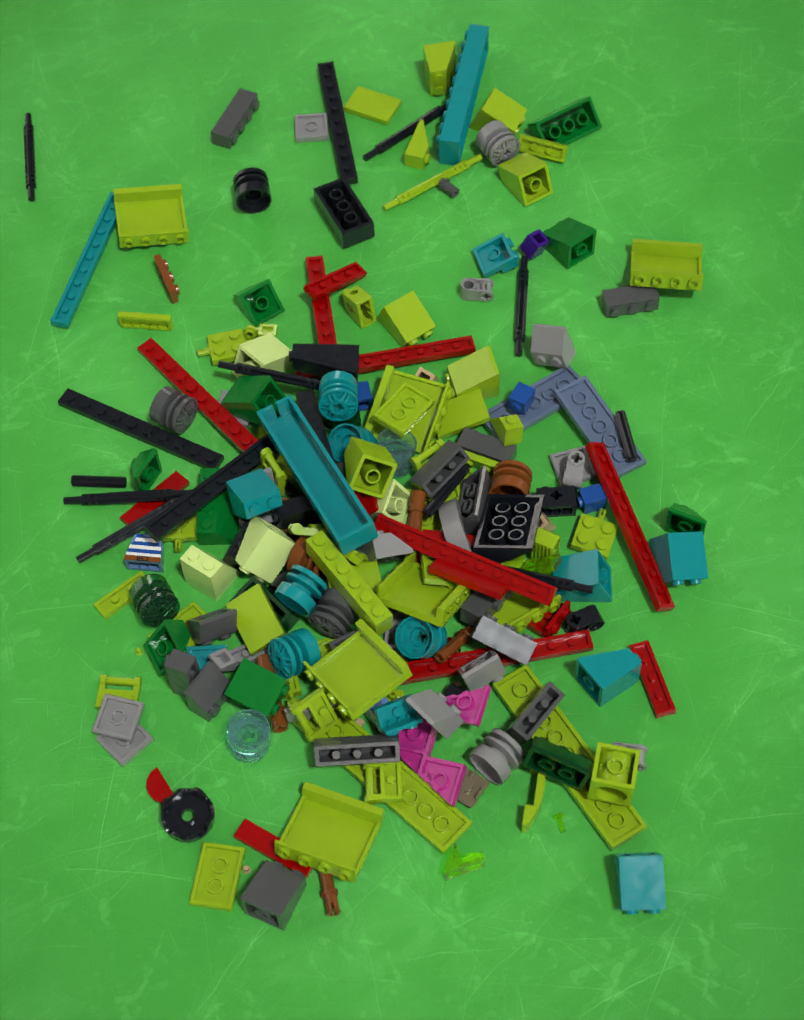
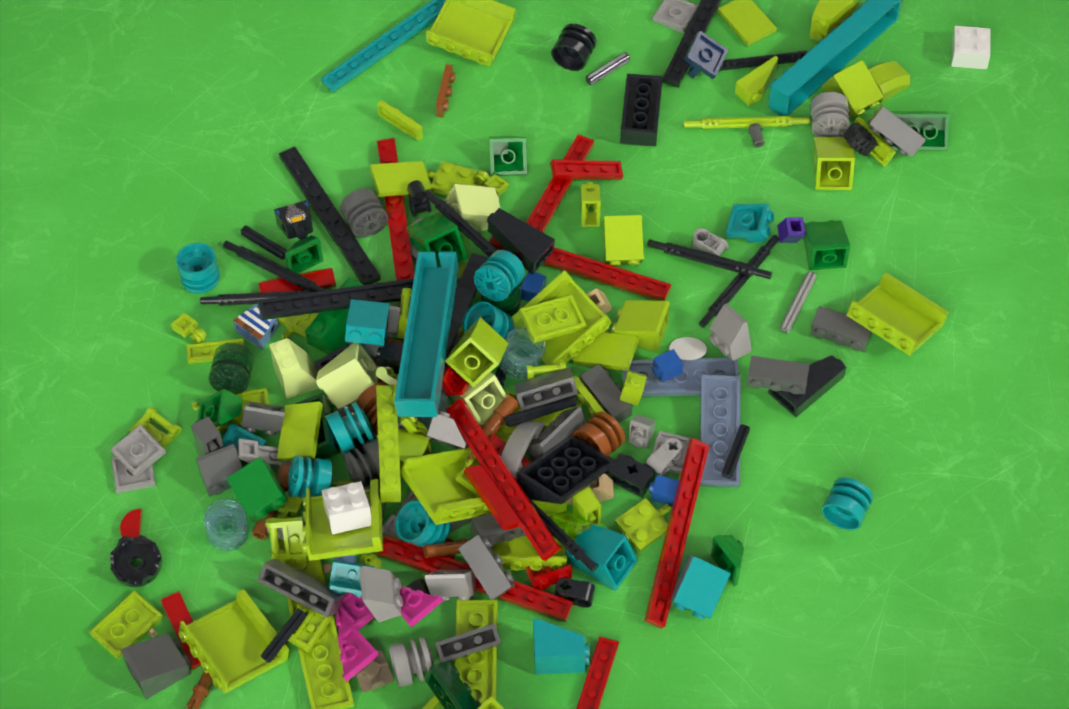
camera: 30 degrees right, 0 degrees up
(58, 532) = (198, 267): none -> teal wheel
(81, 587) = (185, 325): none -> lime plate
(115, 447) = (295, 220): none -> black torso
(184, 366) = (393, 178): none -> lime tile
(211, 375) = (417, 200): none -> black piece
(289, 195) = (607, 68): none -> axle
(354, 657) = (346, 507): none -> white brick
(364, 146) = (705, 56): none -> bracket
(373, 799) = (283, 635): none -> black axle
(489, 299) = (709, 259): none -> black axle
(520, 93) = (890, 78): none -> lime slope
(524, 375) = (688, 348): none -> white sticker
(536, 148) = (860, 139): none -> black tyre
(538, 461) = (641, 431): none -> light grey slope
(558, 129) = (896, 131): none -> brick
(562, 43) = (970, 47): none -> white brick
(579, 297) = (797, 302): none -> light grey axle
(615, 358) = (778, 375): none -> dark grey brick
(636, 357) = (820, 379): none -> black slope
(742, 428) = (847, 503): none -> teal wheel

